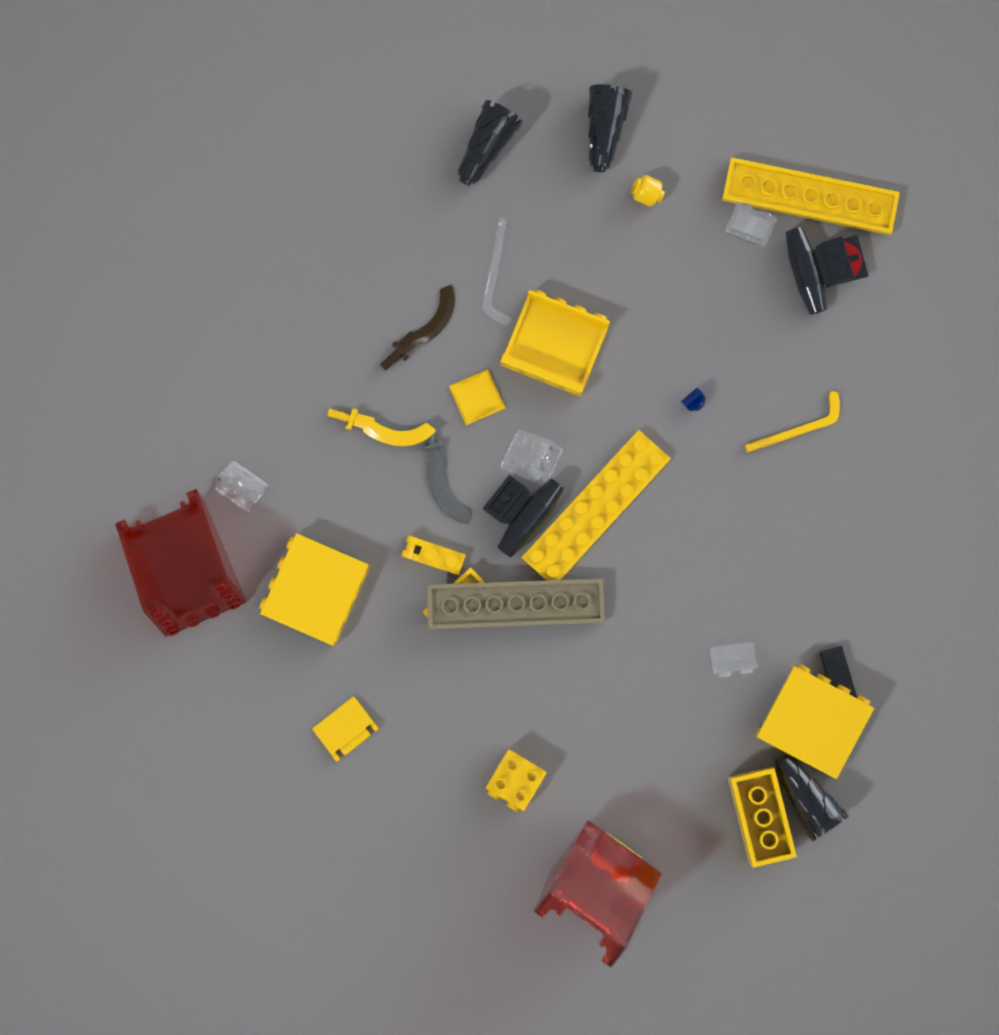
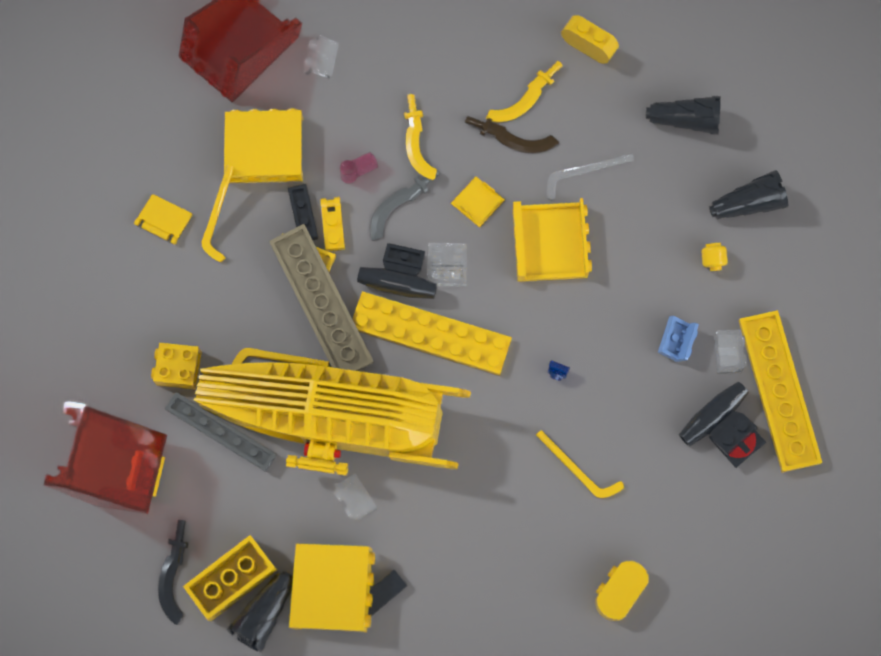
camera: 65 degrees right, 10 degrees down
(357, 199) = (590, 39): none -> yellow brick
(385, 500) = (359, 167): none -> clear pink piece
(390, 294) = (528, 100): none -> yellow sword
(394, 695) = (206, 241): none -> yellow piece
(404, 579) = (302, 209): none -> black tile
(531, 701) = (251, 352): none -> yellow piece
(604, 764) = (220, 432): none -> dark grey plate
(642, 646) = (330, 411): none -> yellow piece
(716, 267) = (678, 339): none -> medium blue bracket
(724, 876) = (167, 575): none -> black sword
(937, 442) = (621, 590): none -> yellow brick

